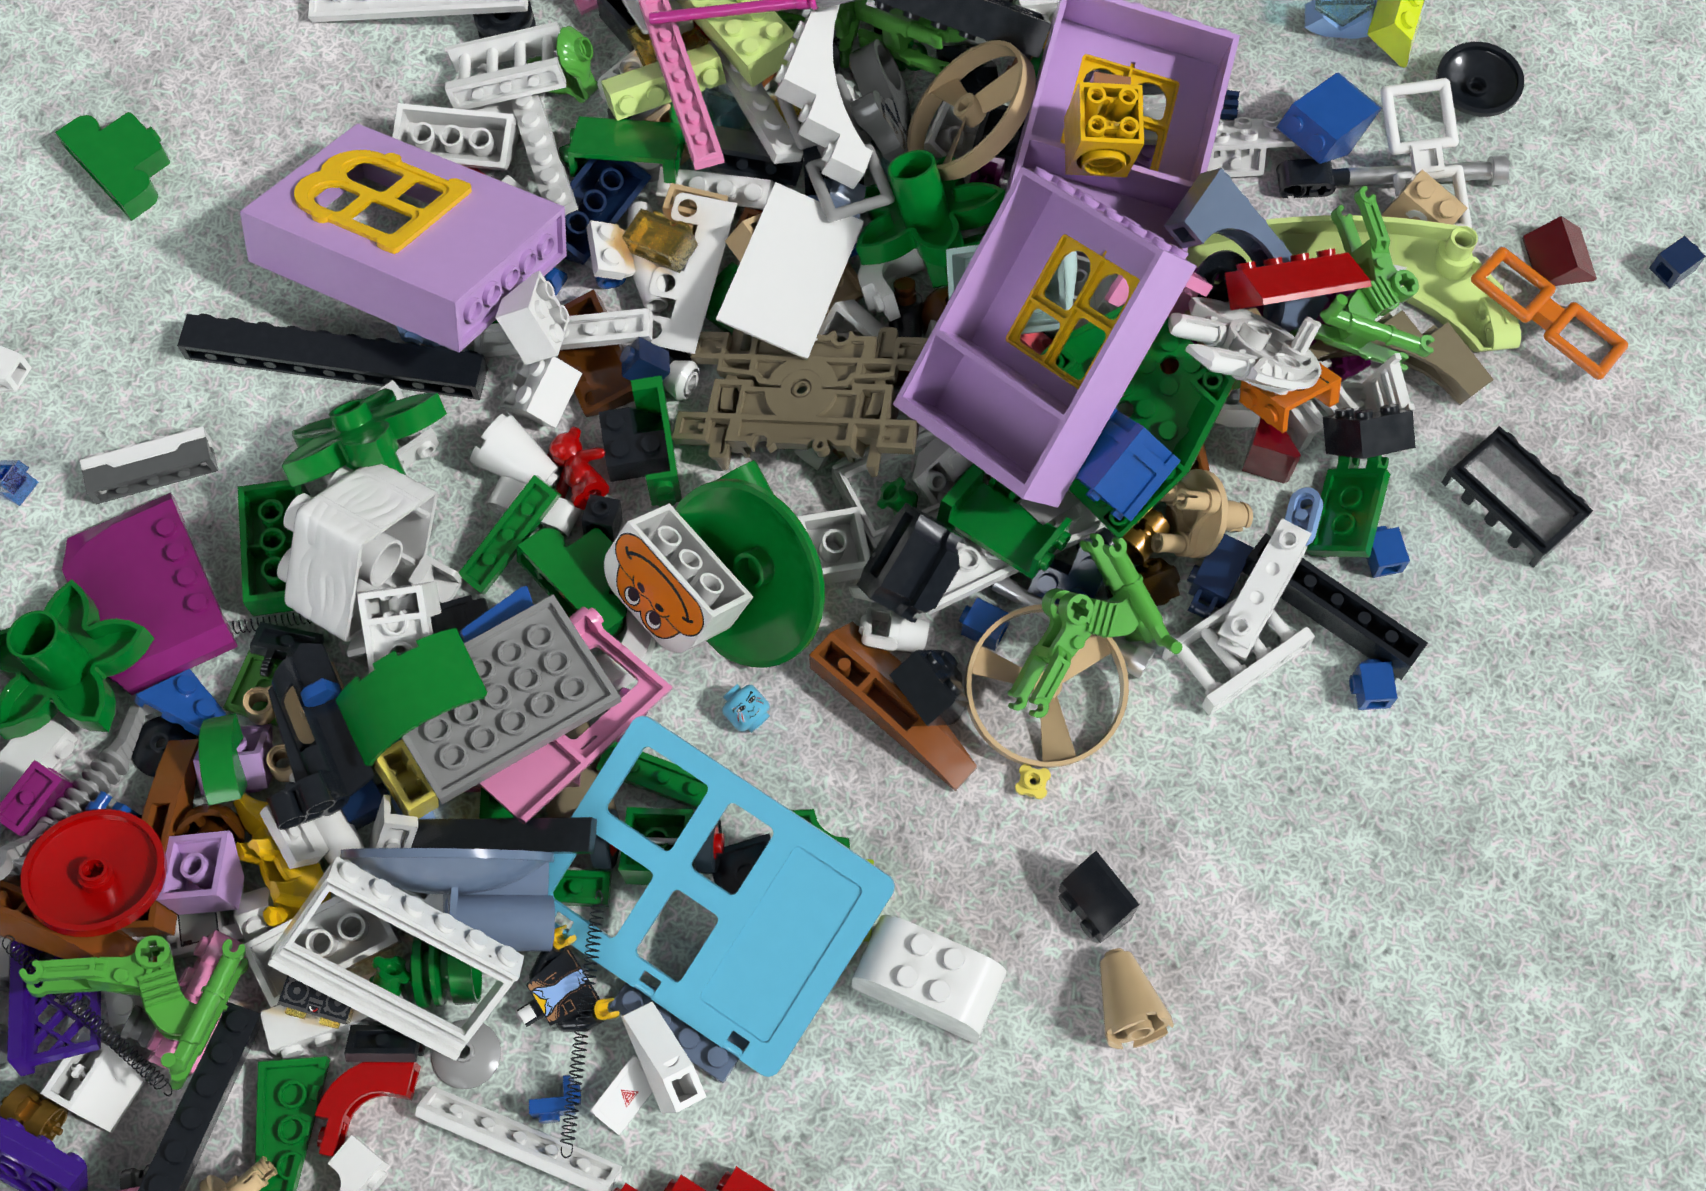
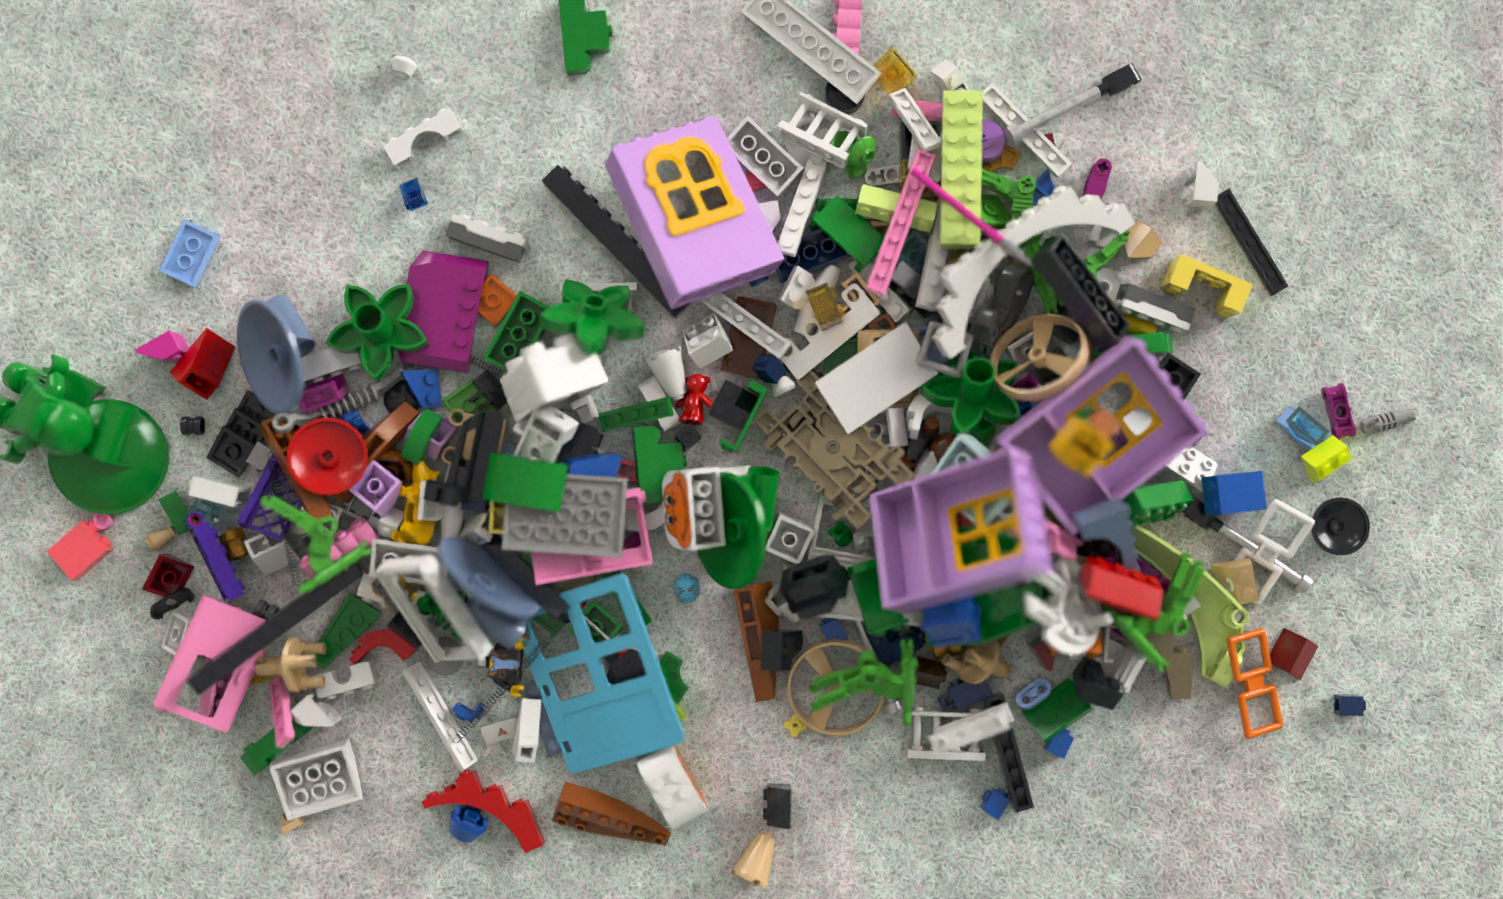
camera: 40 degrees right, 20 degrees up
(214, 535) = (495, 300): none -> orange tile
(319, 692) = (485, 444): blue tile -> none
(533, 319) = (725, 310): white slope -> none
(869, 1102) = (606, 816): none -> dark orange wedge
(1258, 174) = (1157, 502): none -> green brick
(1519, 494) = (1151, 763): window -> none

